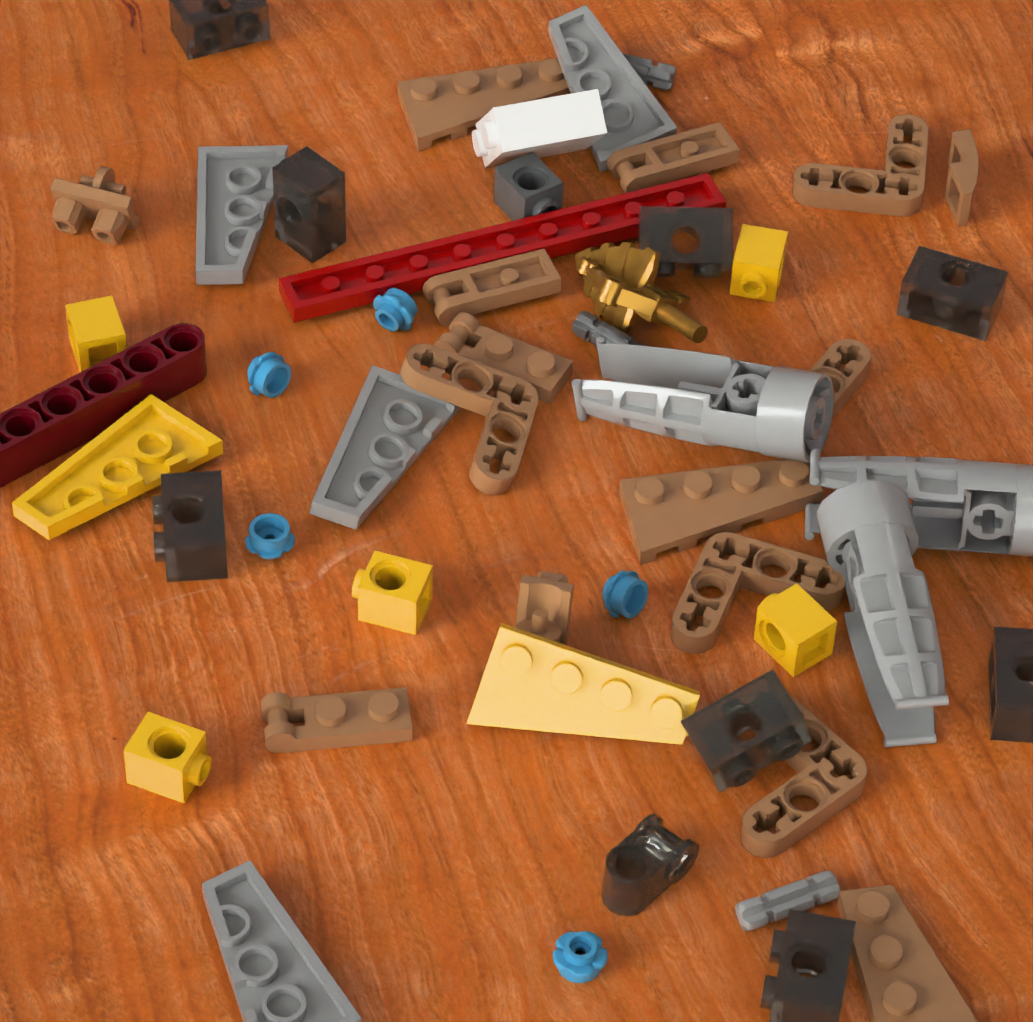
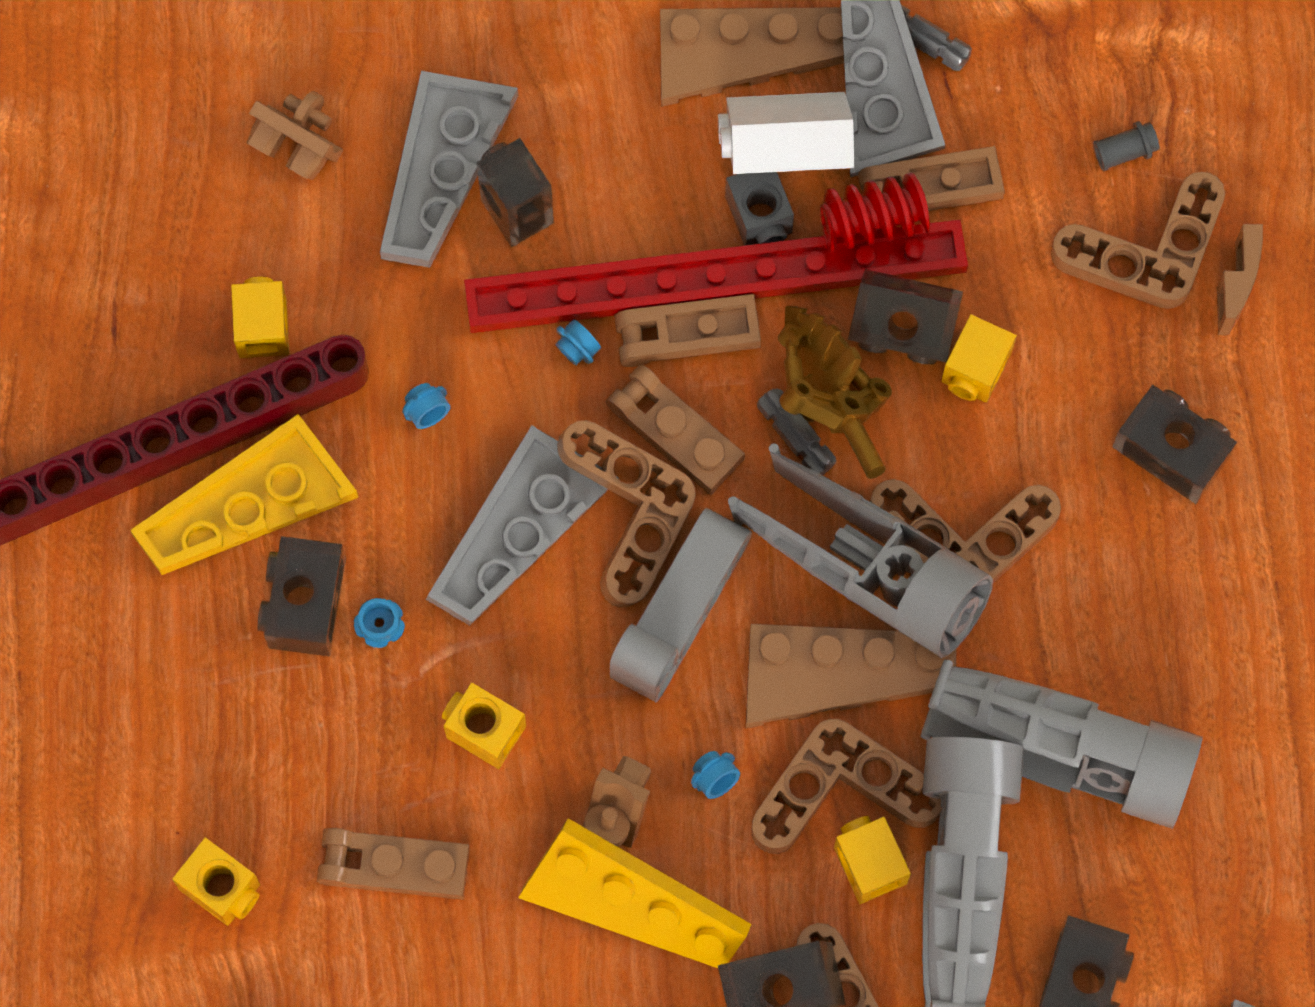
camera: 15 degrees right, 25 degrees up
(543, 490) = (658, 643): none -> light grey beam
(634, 163) = (873, 211): none -> red piece
(838, 107) = (1126, 146): none -> dark grey pin

